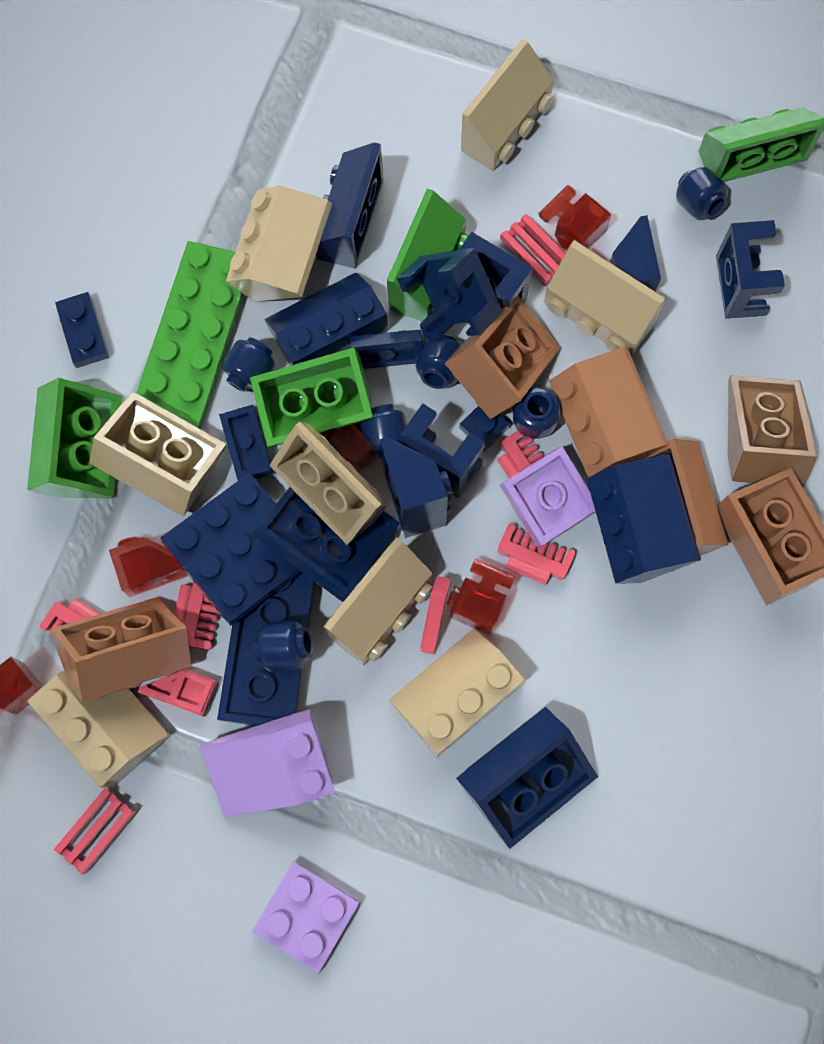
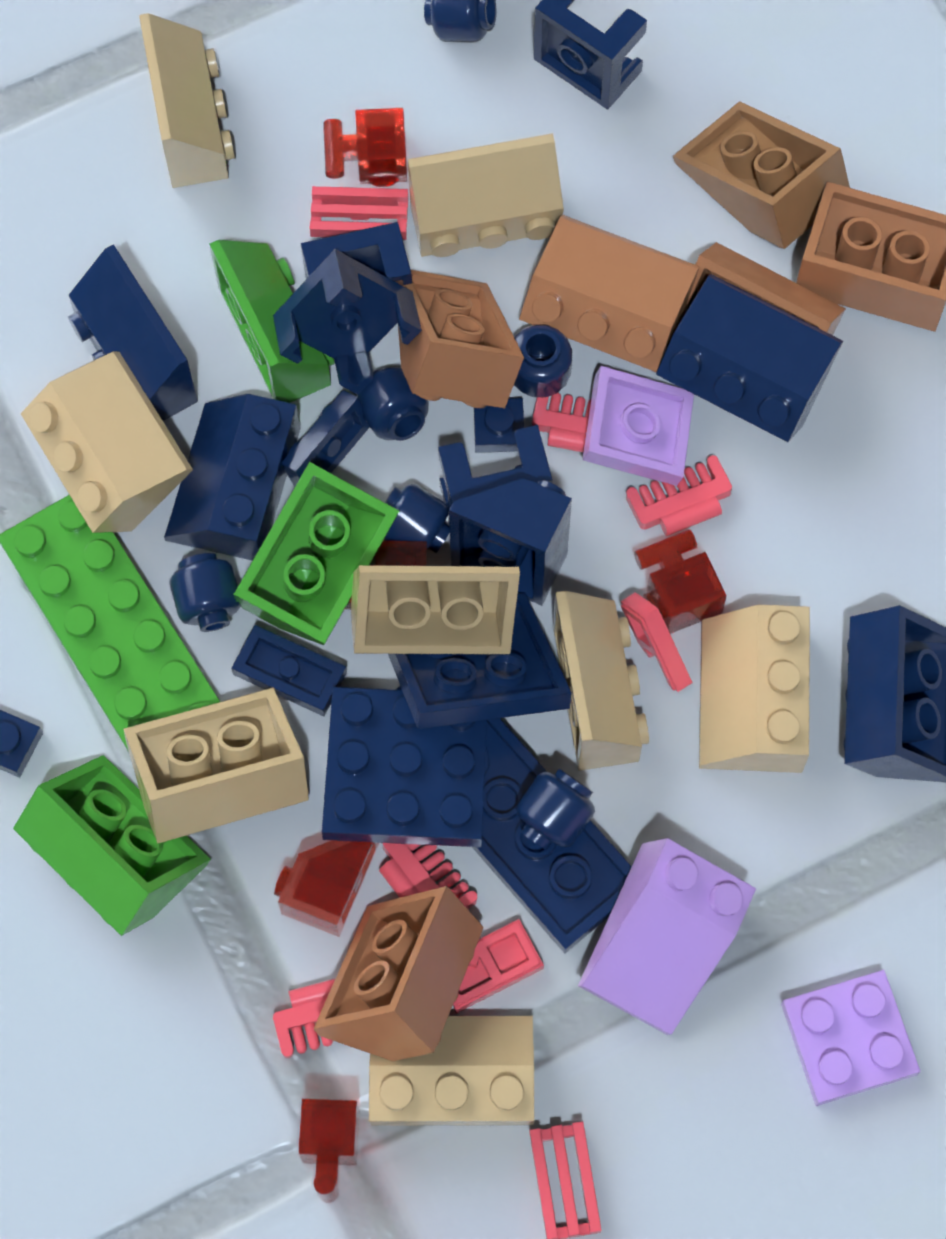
camera: 50 degrees left, 5 degrees down
(637, 255) = (466, 121): dark blue slope -> none

